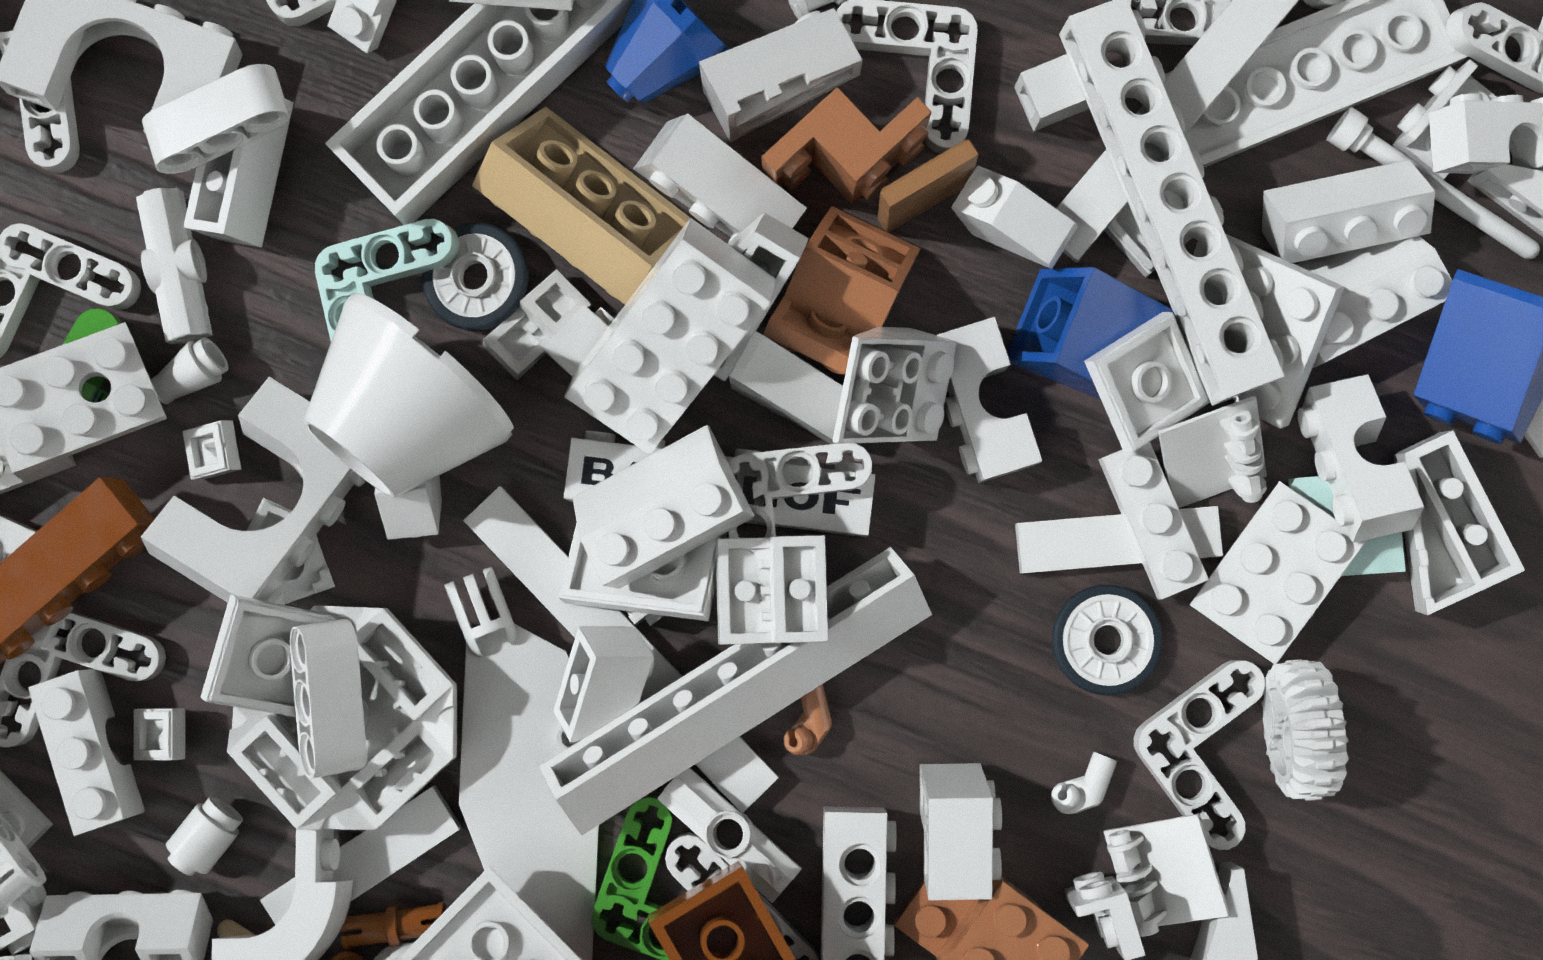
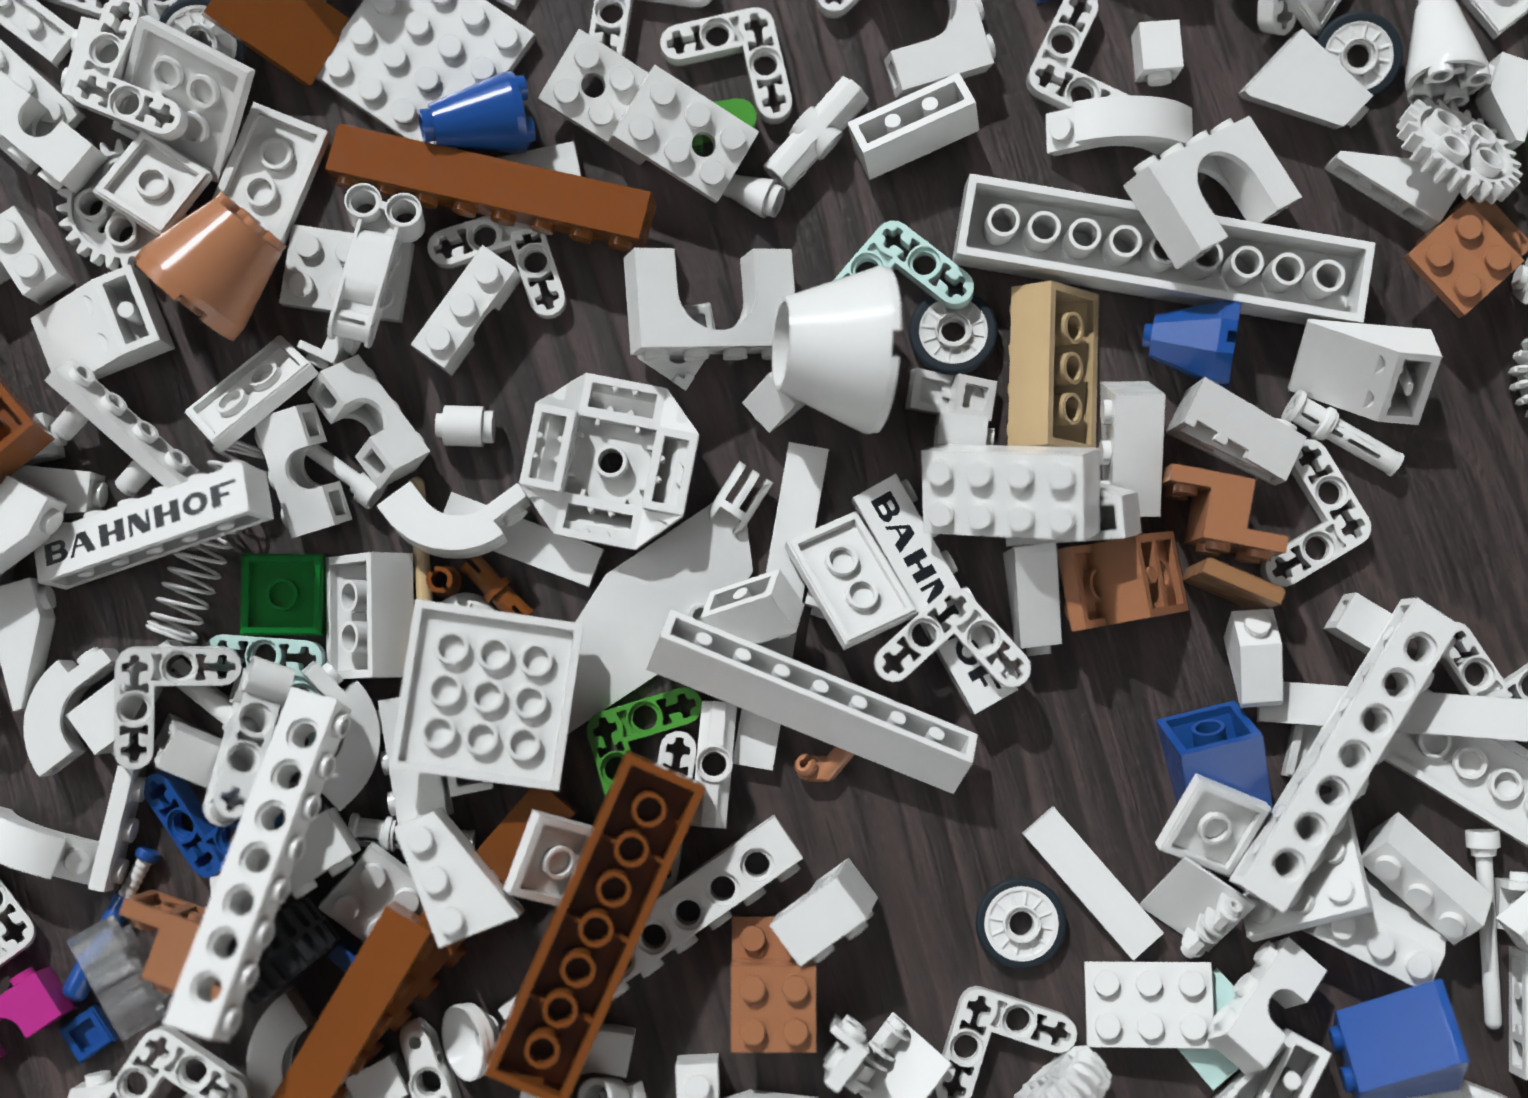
camera: 50 degrees right, 0 degrees up
(159, 734) = (509, 348): white tile -> none
(211, 450) = (715, 246): white tile -> none
(216, 119) = (934, 94): white beam -> none
(254, 657) = (616, 385): white tile -> none
(328, 698) = (618, 442): white beam -> none
(659, 509) = (894, 565): white slope -> none
(771, 590) = (895, 676): white slope -> none
(894, 386) = (1086, 661): white slope -> none
(991, 443) = (1094, 752): white arch -> none
(1087, 790) = (912, 981): white arm -> none
(1153, 520) = (1123, 896): white plate -> none

